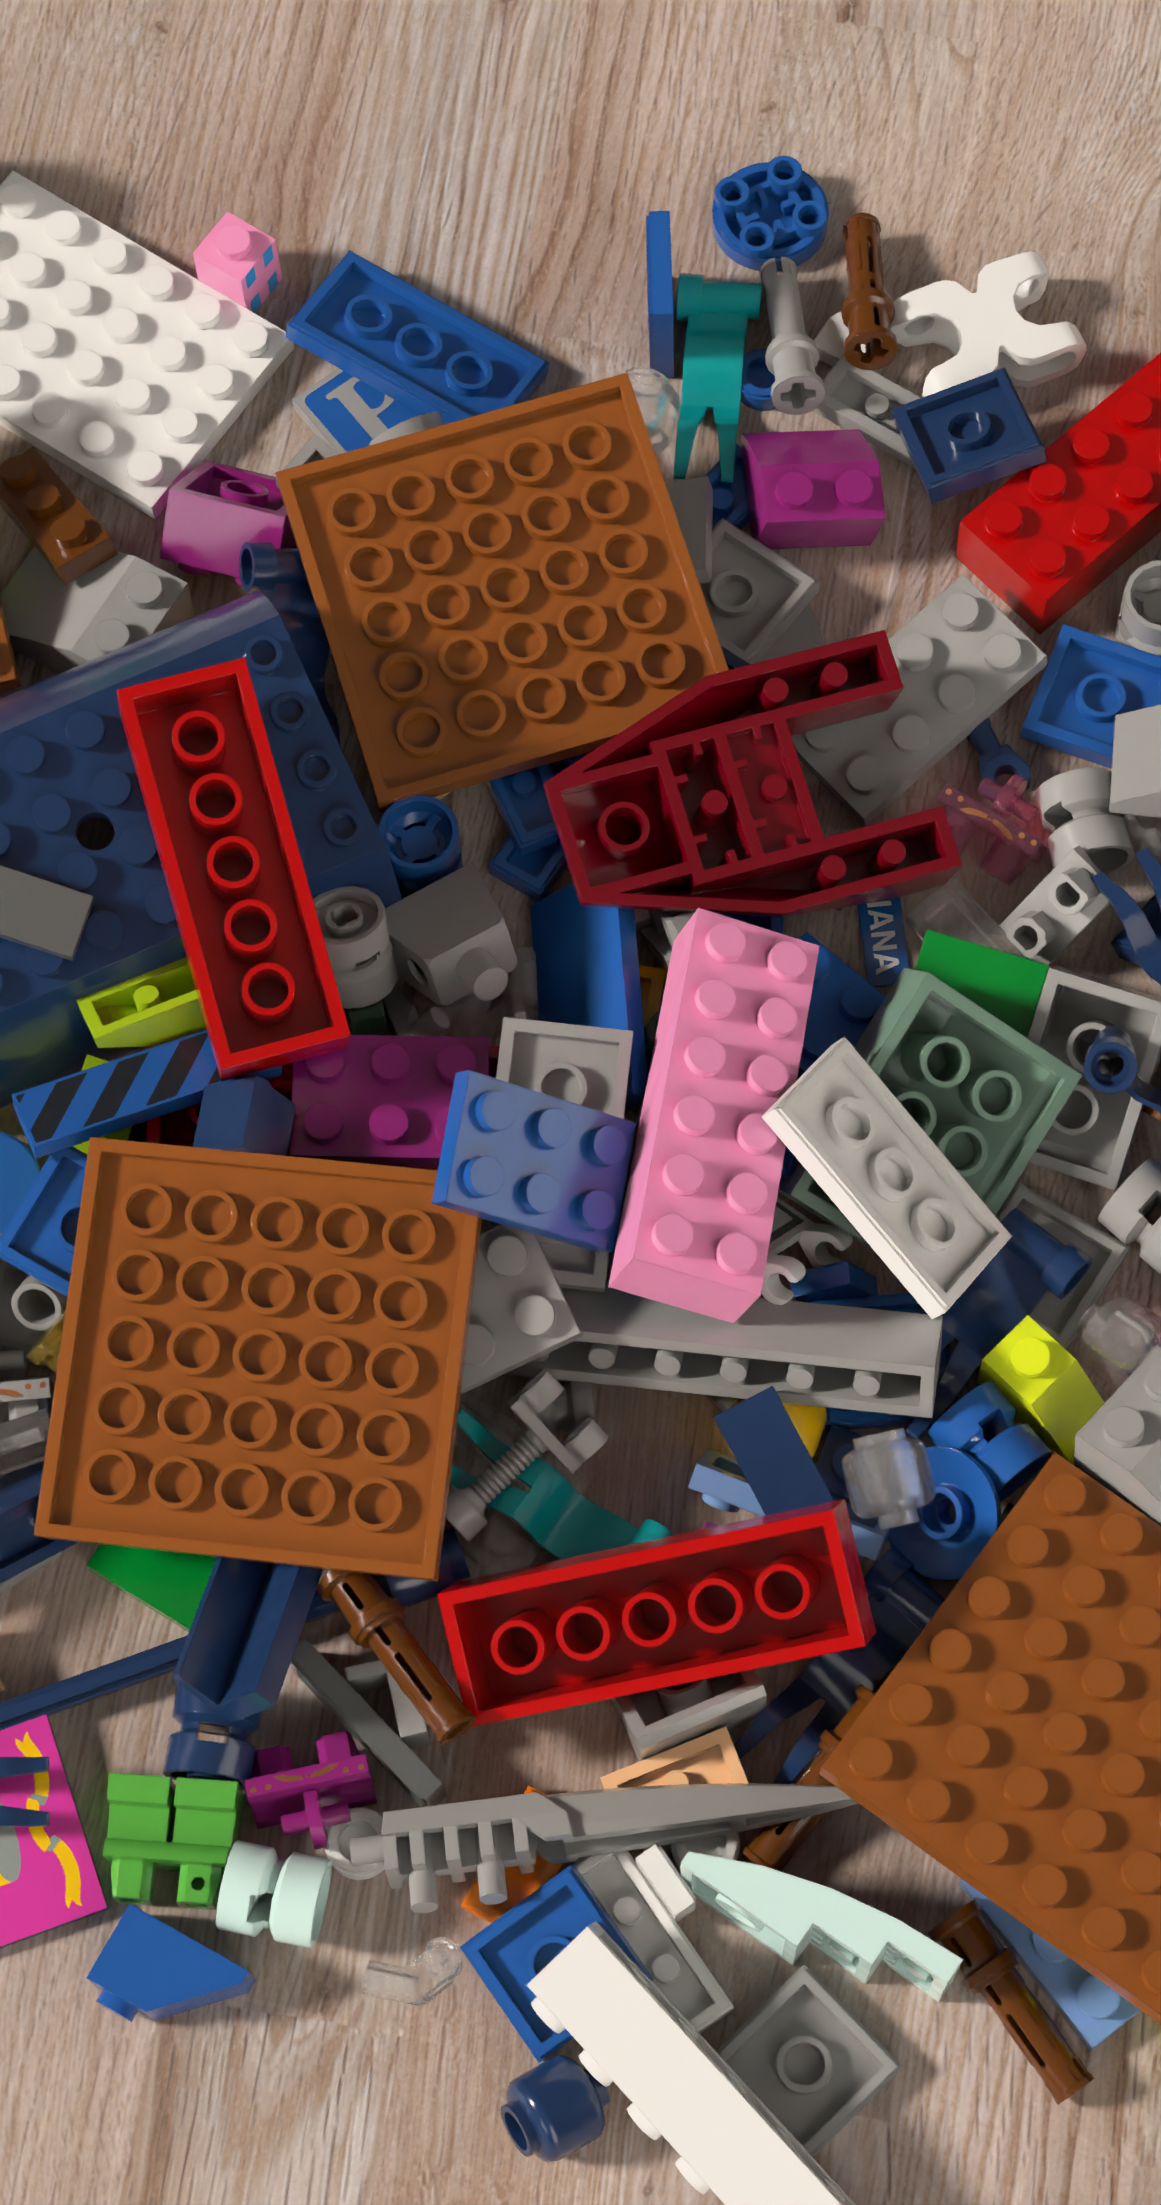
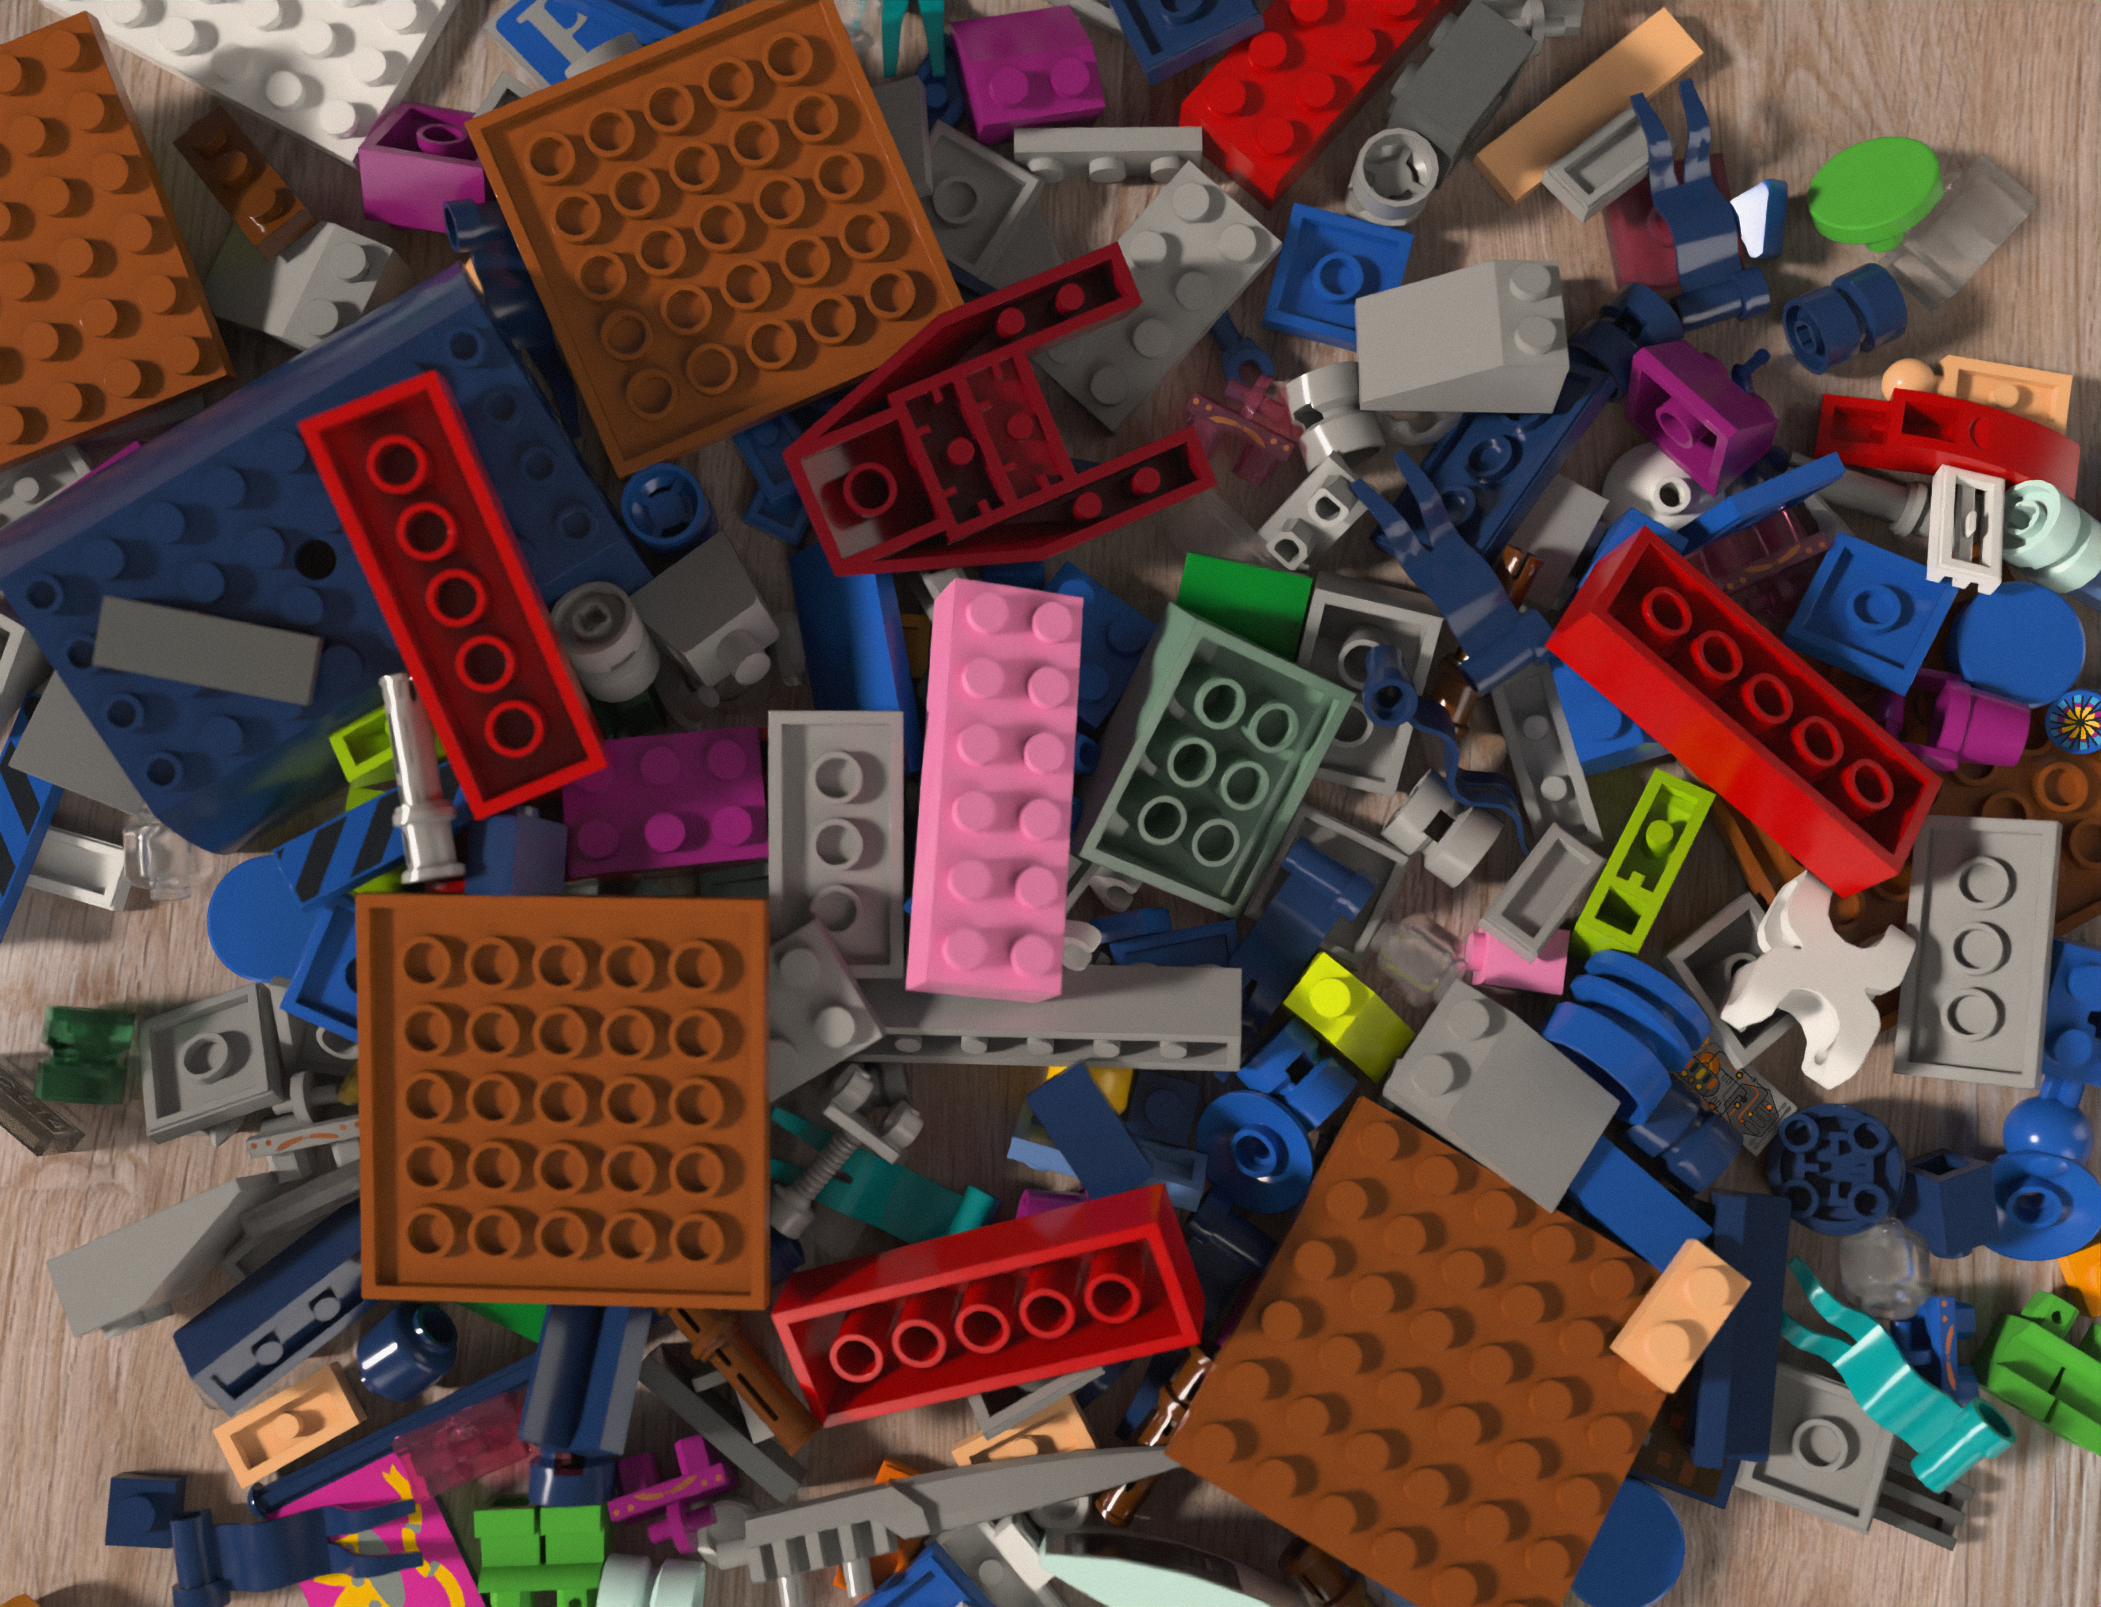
camera: 10 degrees left, 15 degrees up
(57, 1620) = (407, 1351): none -> dark blue head
(101, 1715) = (461, 1447): none -> clear pink hips
(164, 1067) = (423, 812): none -> light grey pin
(533, 1162) = (813, 877): blue plate -> none
(883, 563) = (1107, 152): none -> light grey plate
(883, 941) = (1145, 561): blue sticker -> none
(887, 1177) = (1173, 837): white tile -> none
(888, 1478) = (1202, 1133): clear head -> none

